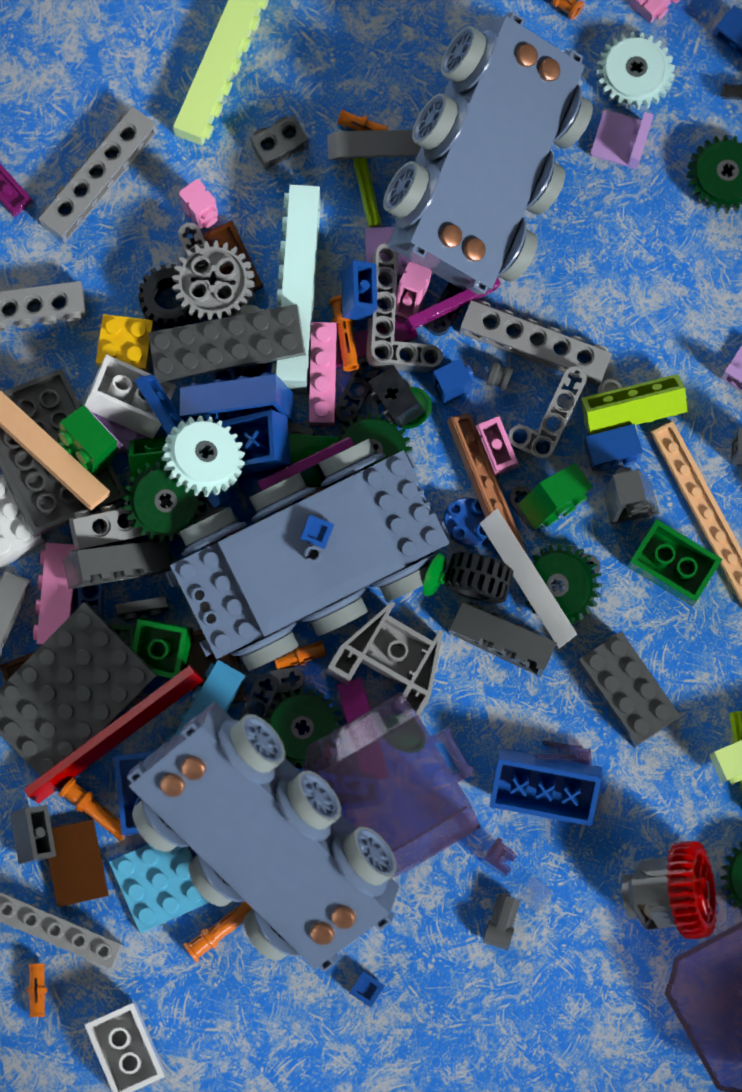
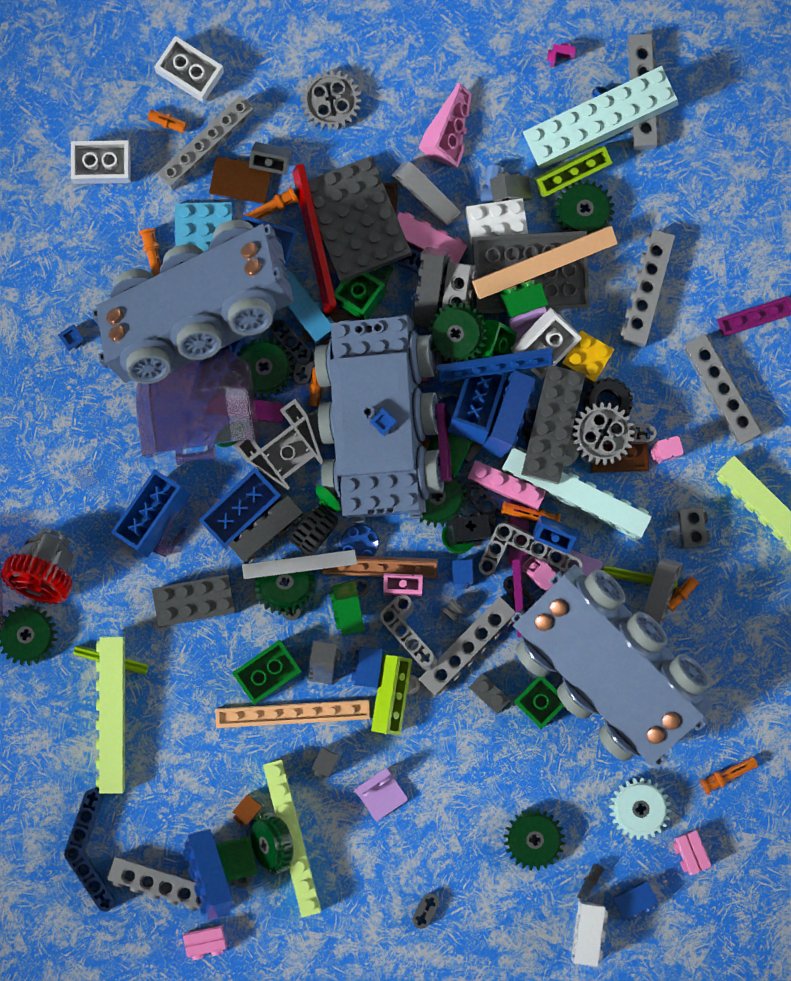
camera: 110 degrees right, 5 degrees up
(132, 610) = (395, 286): dark grey plate -> none
(185, 459) = (471, 357): light aqua gear -> none
(349, 630) = (313, 417): none -> dark grey beam
(490, 681) = (240, 508): none -> blue brick
(498, 856) = (118, 460): clear purple hinge -> none
(500, 927) = (71, 443): dark grey piece -> none
(564, 231) = (539, 702): none -> green brick
(580, 293) = (489, 693): none -> dark grey brick
(621, 138) = (593, 775): lavender bracket -> none

